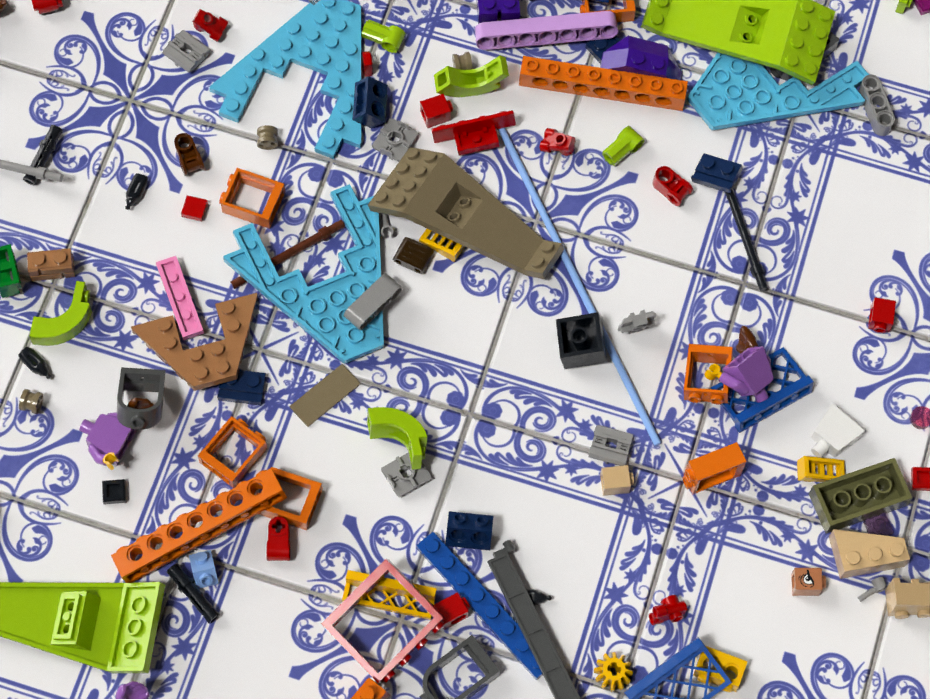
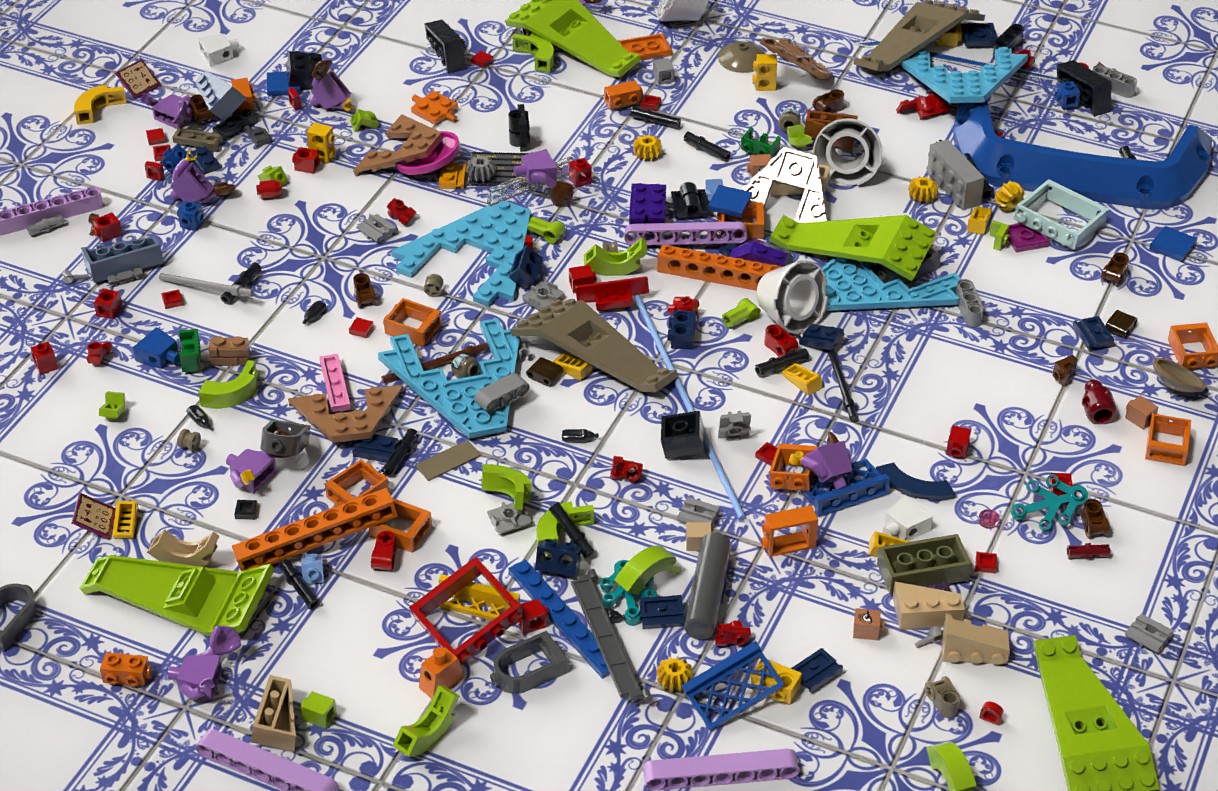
camera: 10 degrees right, 25 degrees down
(58, 566) = (170, 549): none -> tan arch
(274, 384) = (403, 447): none -> black pin
(323, 260) = (464, 366): none -> dark tan head
(458, 474) = (549, 527): none -> lime arch
(463, 346) = (578, 435): none -> black piece
(485, 498) = (571, 529): none -> black pin
(527, 392) = (621, 468): none -> red plate
(548, 558) = (632, 614): none -> teal plant
(562, 178) = (682, 329): none -> dark blue brick
(566, 539) = (644, 566): none -> lime arch
(589, 588) = (662, 612): none -> dark blue plate
(634, 550) = (707, 586): none -> dark grey cylinder
(669, 219) = (775, 364): none -> black pin
(676, 350) = (766, 453): none -> red tile
(681, 126) = (794, 295): none -> white cone
(710, 244) = (804, 379): none -> yellow slope
(760, 647) = (817, 669): none -> dark blue plate
(837, 381) = (915, 487): none -> dark blue tile
(893, 663) = (943, 697): none -> dark tan piece

